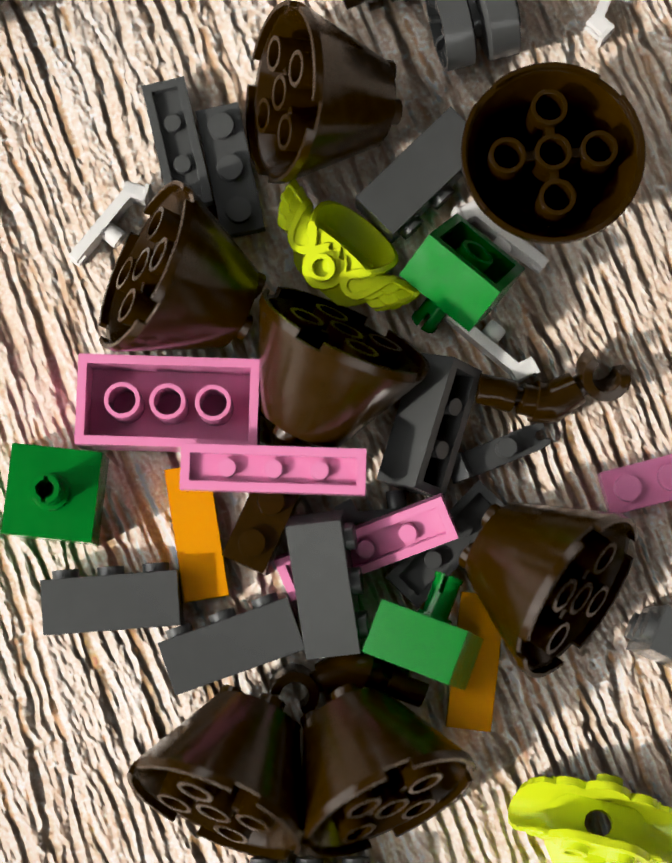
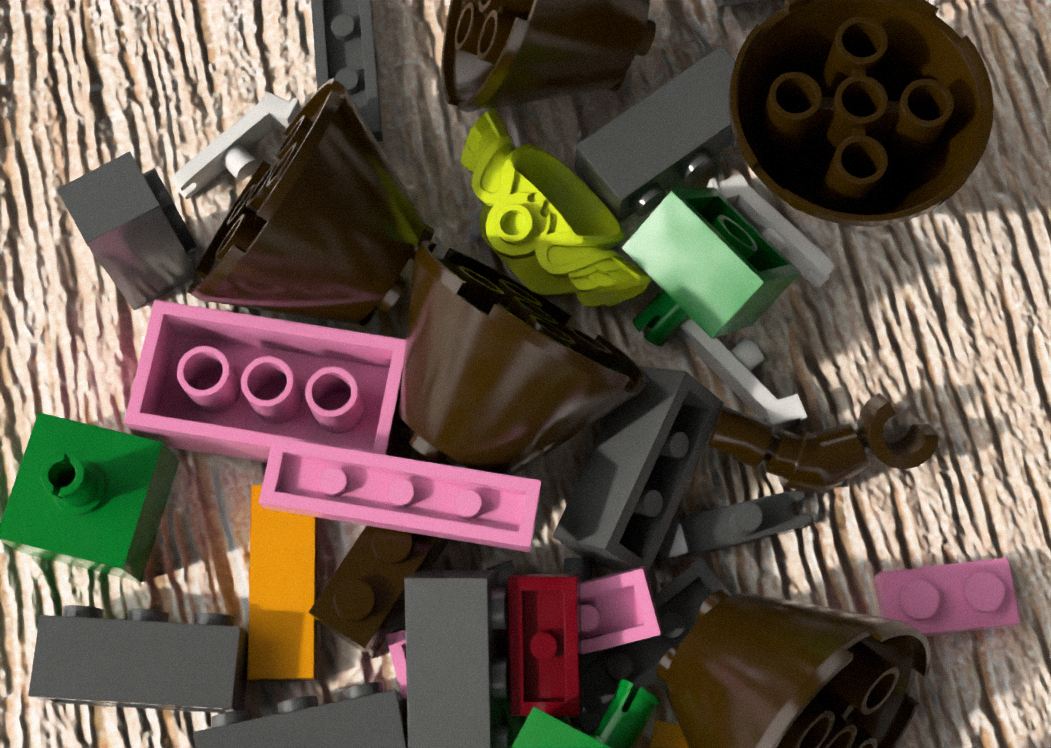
camera: 10 degrees right, 10 degrees down
(55, 305) = (132, 228): none -> dark grey brick
(230, 170) = (412, 99): dark grey plate -> none
(382, 554) = (545, 644): none -> dark red plate

